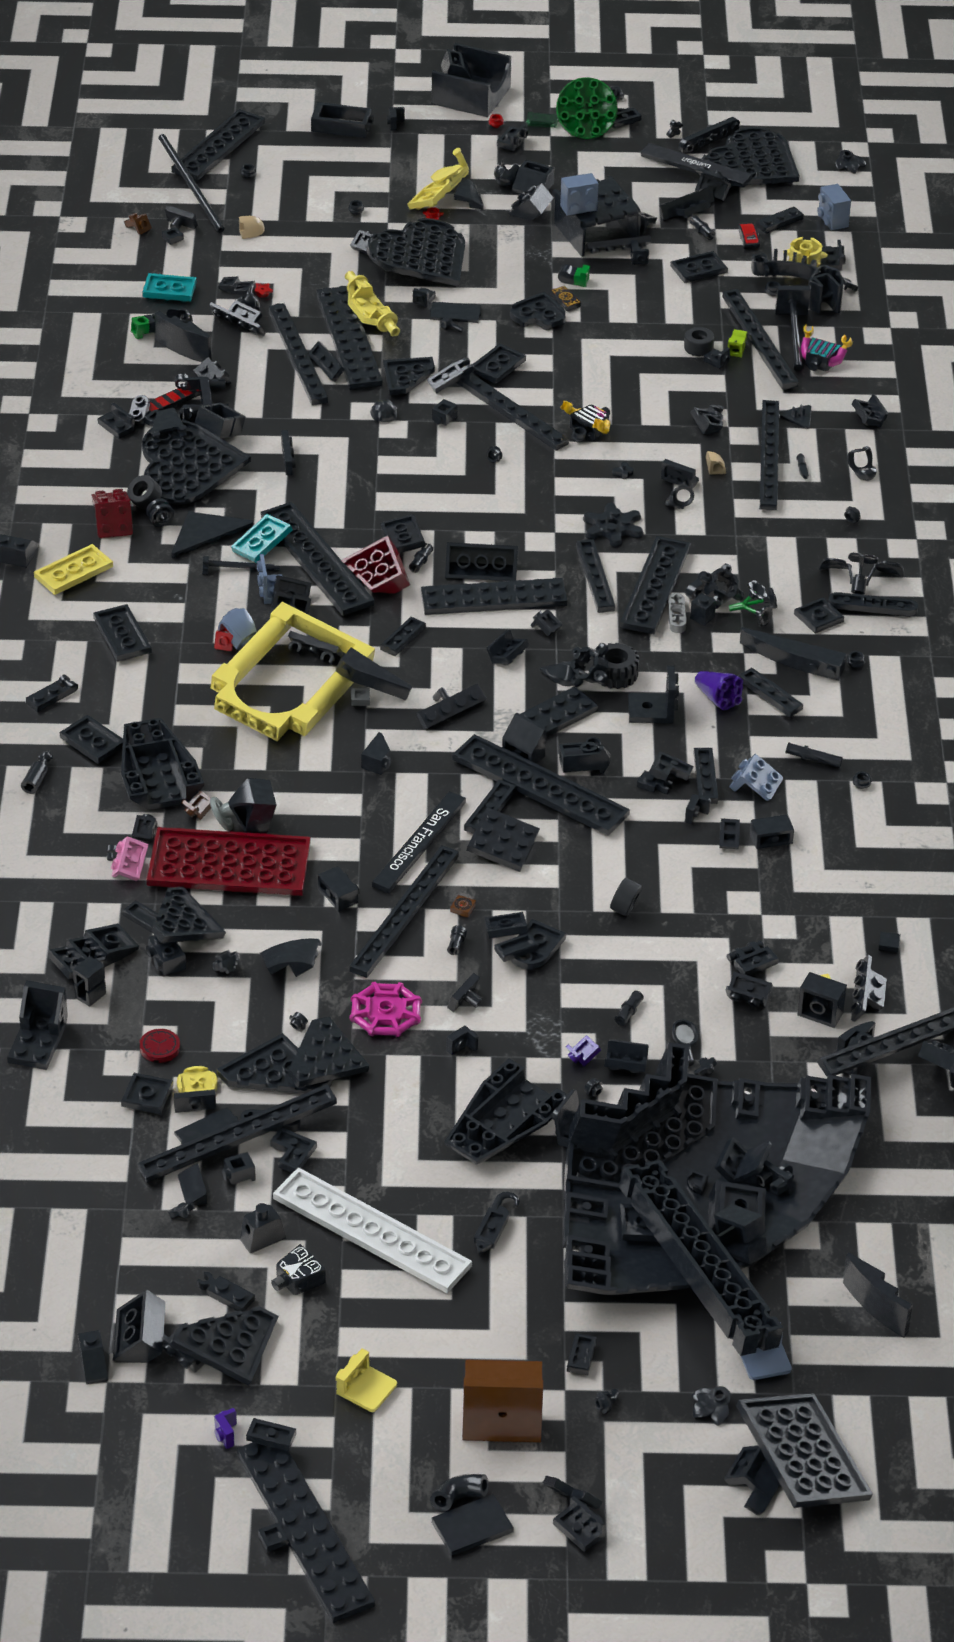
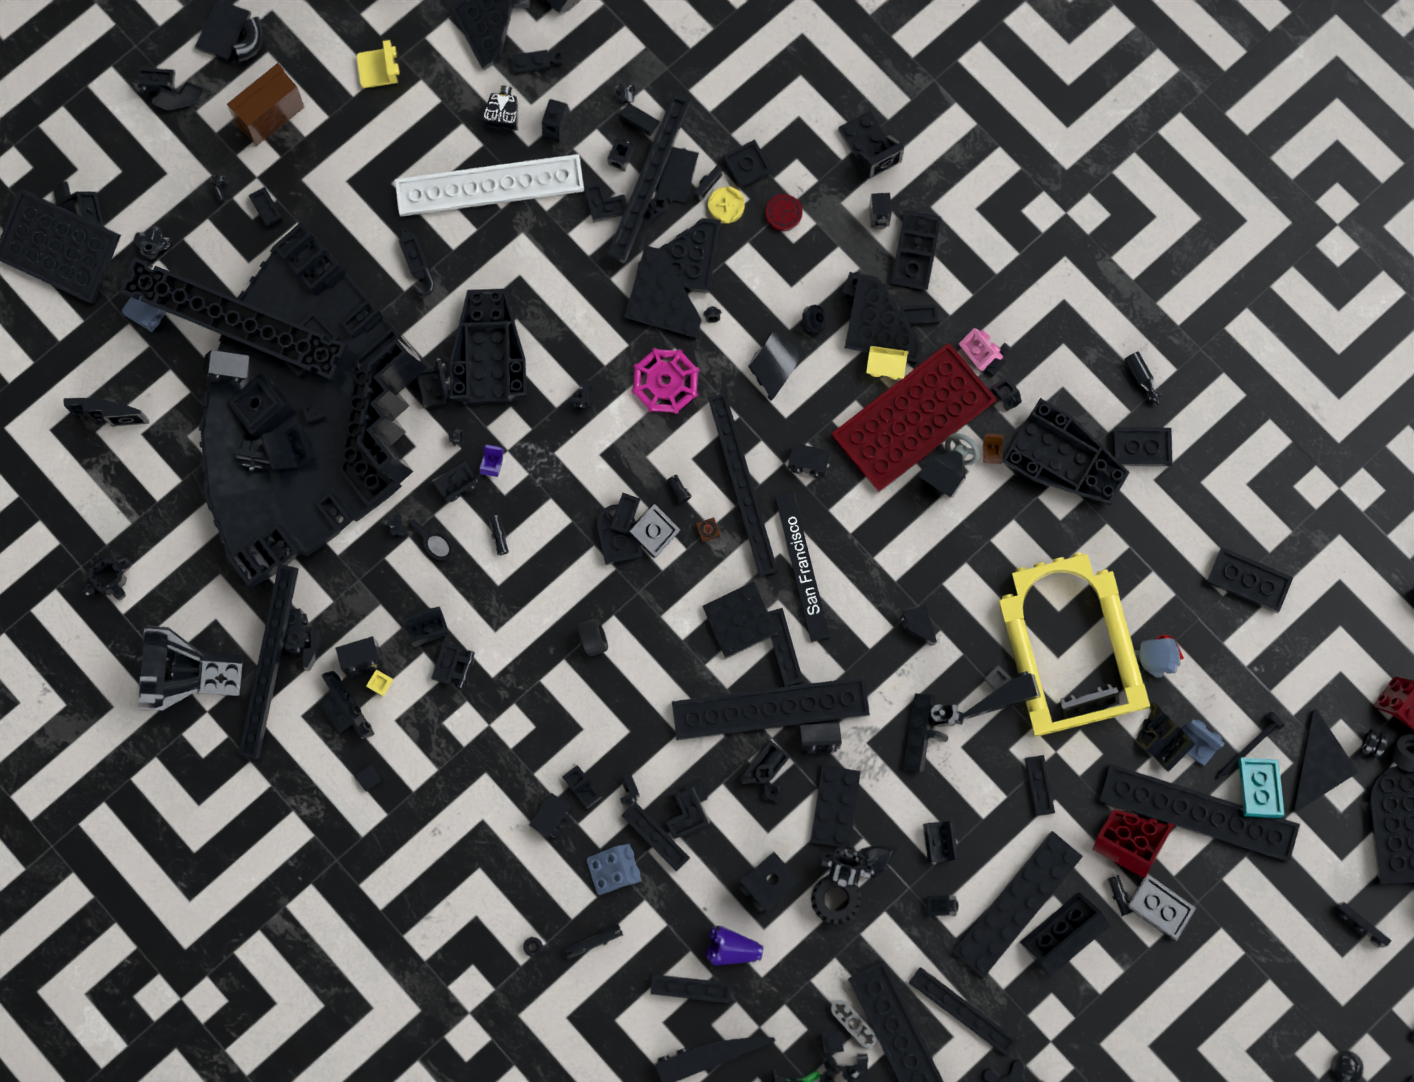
camera: 140 degrees right, 35 degrees up
(52, 693) = (1227, 467): black plate -> none
(73, 569) = (1366, 616): light yellow plate -> none
(207, 897) = (887, 362): none -> light yellow brick
(422, 693) = (946, 715): none -> black hips
(466, 993) = (622, 441): black tile -> none

